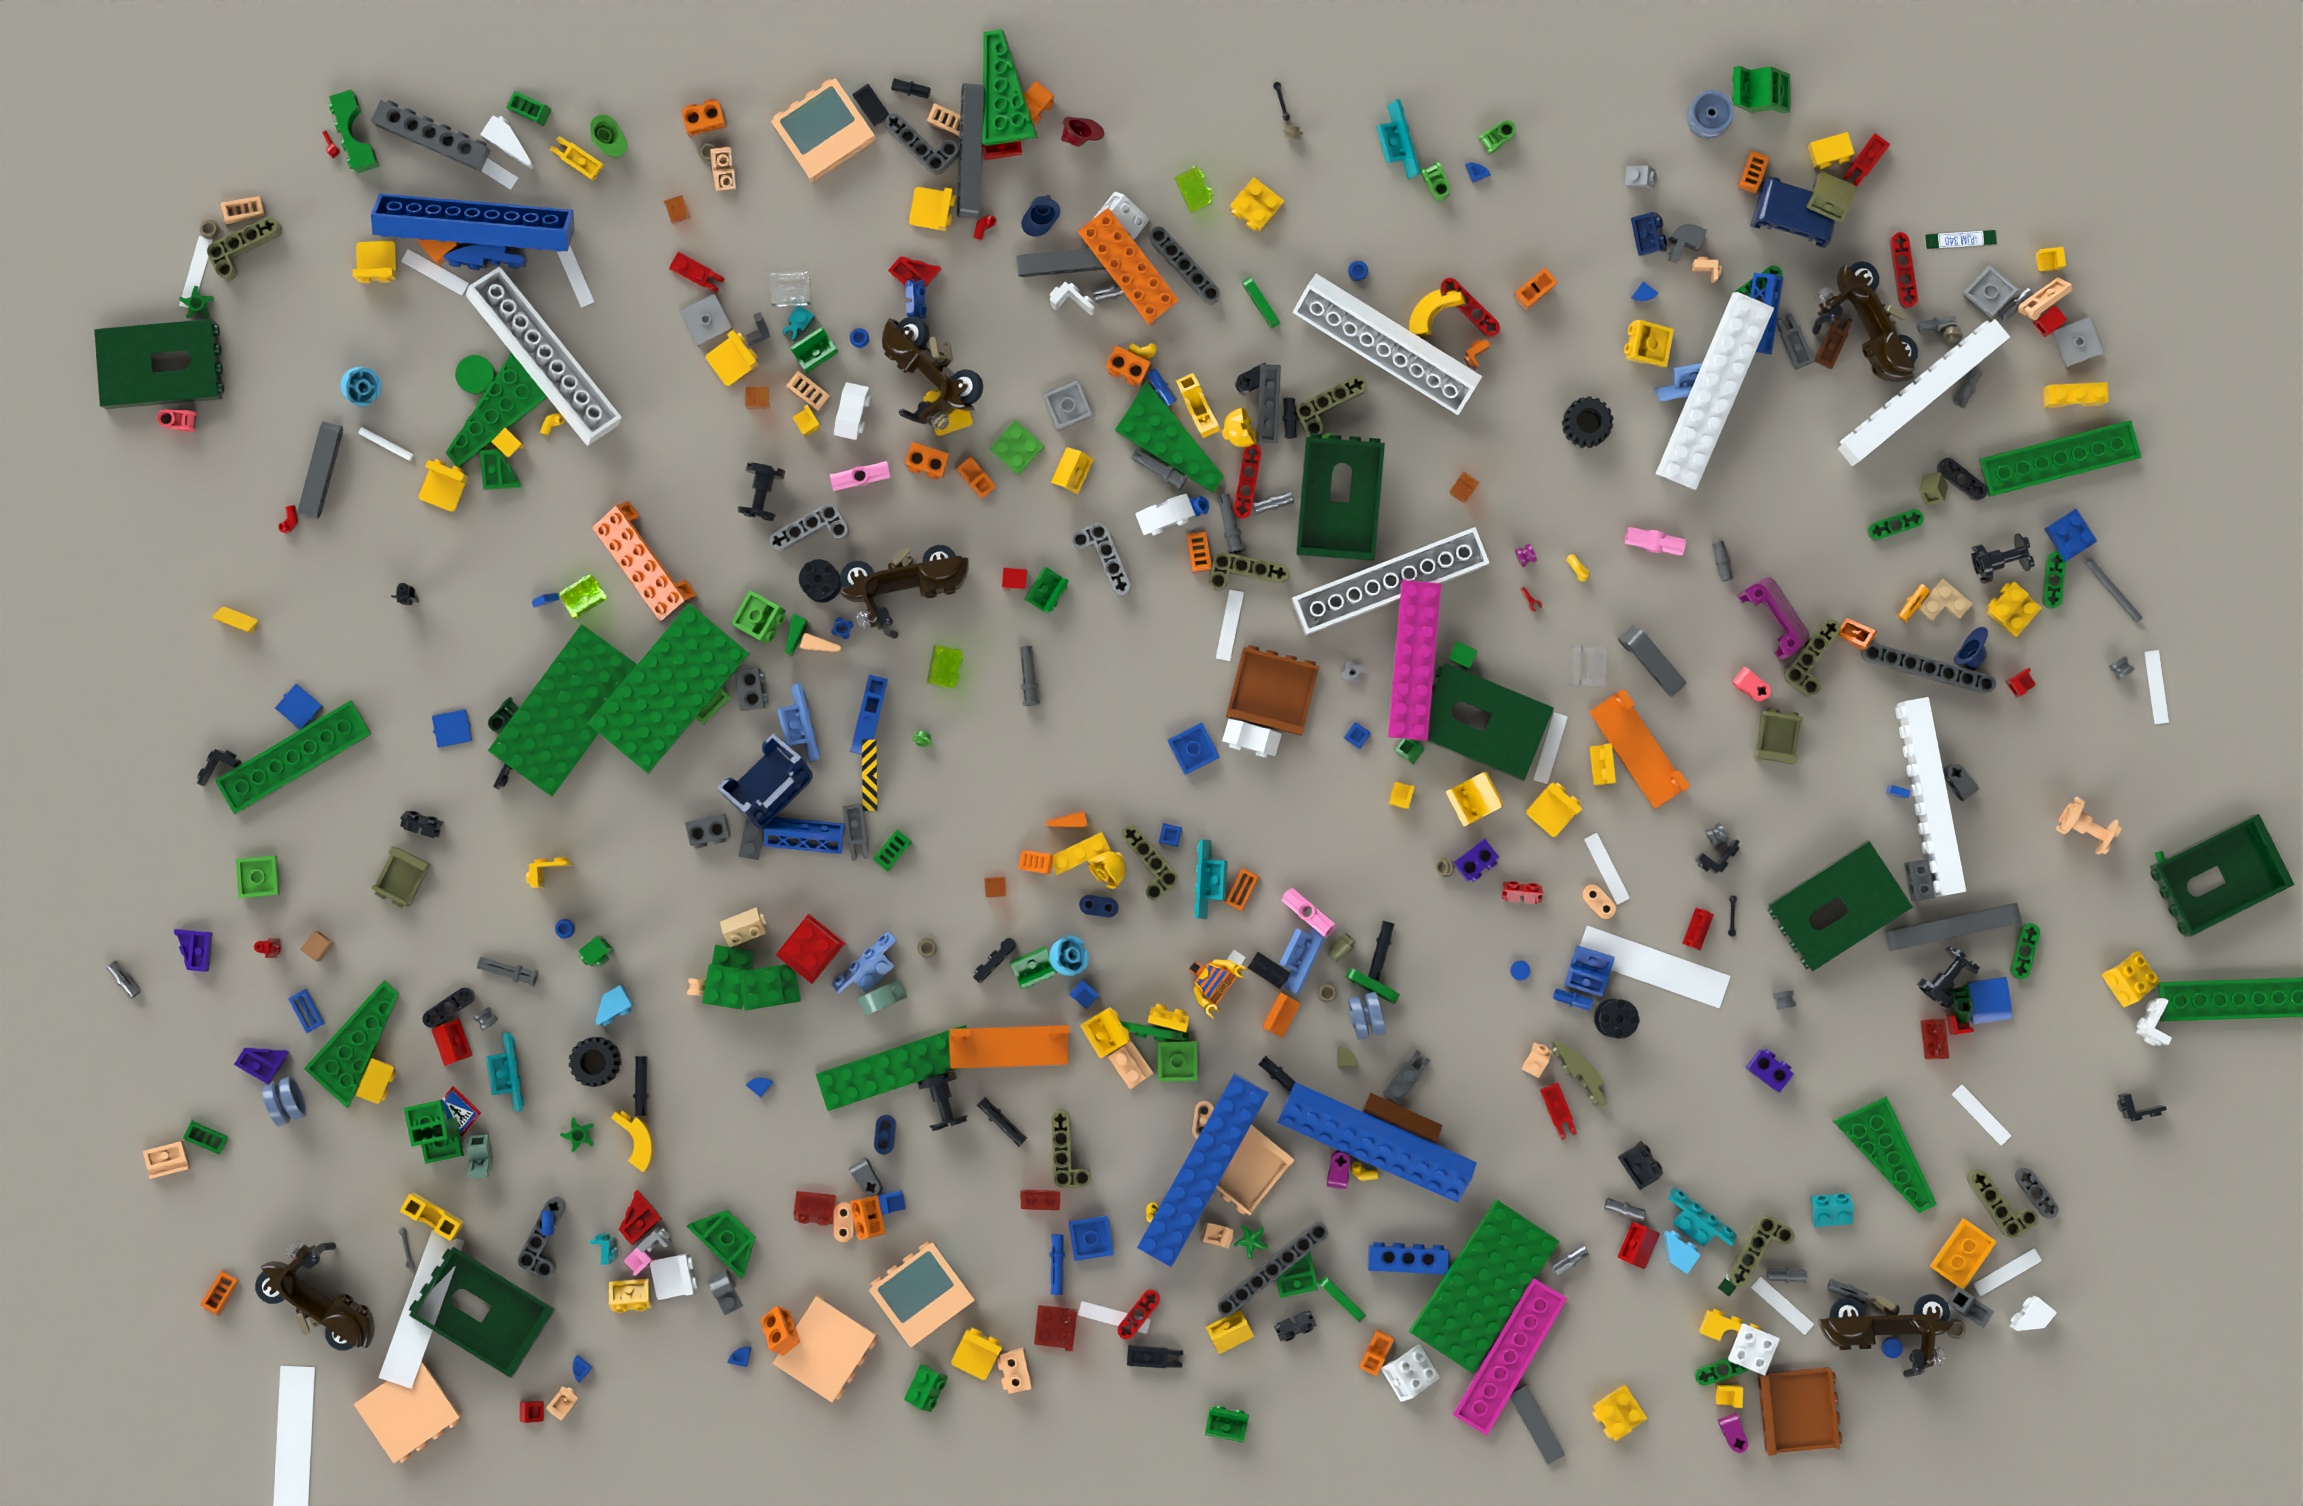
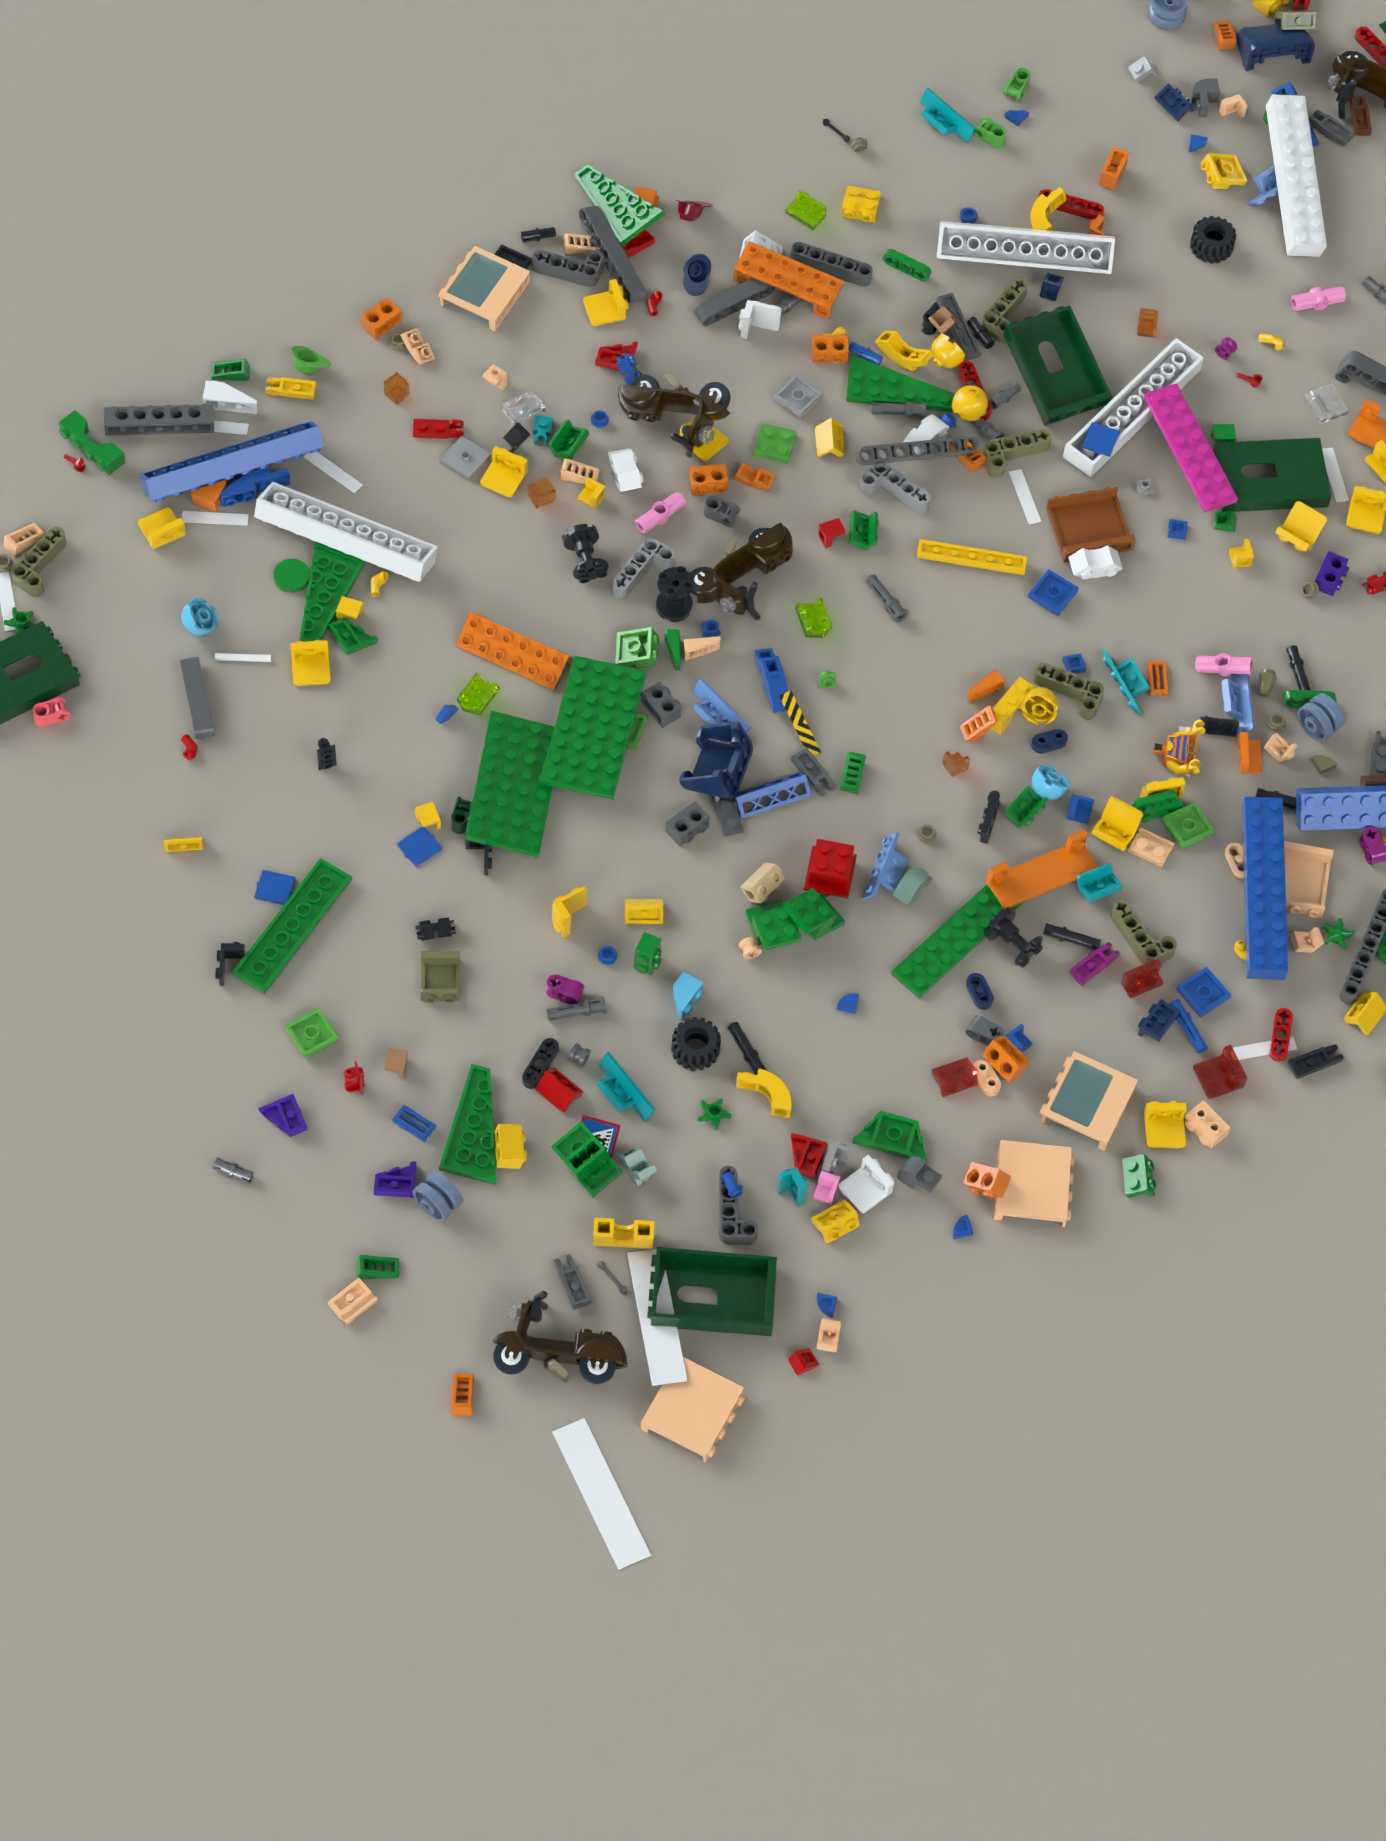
camera: 30 degrees left, 25 degrees down
(366, 1238) = (573, 1283): none -> dark grey hinge
(470, 705) = (428, 815): none -> yellow panel
(509, 948) = (565, 990): none -> magenta piece
(621, 898) = (643, 911): none -> yellow panel
(778, 244) = (496, 377): none -> light nougat bracket
(922, 503) = (721, 511): none -> dark grey piece
(1005, 1159) = (1093, 964): none -> magenta hinge
(1029, 1249) = (1159, 1020): none -> dark blue bracket
(1056, 1081) = (1098, 883): none -> teal bracket
(1134, 527) = (910, 455): none -> dark grey beam
(1136, 671) = (971, 557): none -> yellow plate
(1227, 501) = (970, 403): none -> yellow cylinder
(1251, 395) = (943, 319): none -> medium nougat panel
(1312, 1024) = (1280, 748): none -> light nougat bracket
(1330, 609) = (1100, 439): none -> blue piece
(1393, 396) = (1051, 286): none -> dark blue bracket

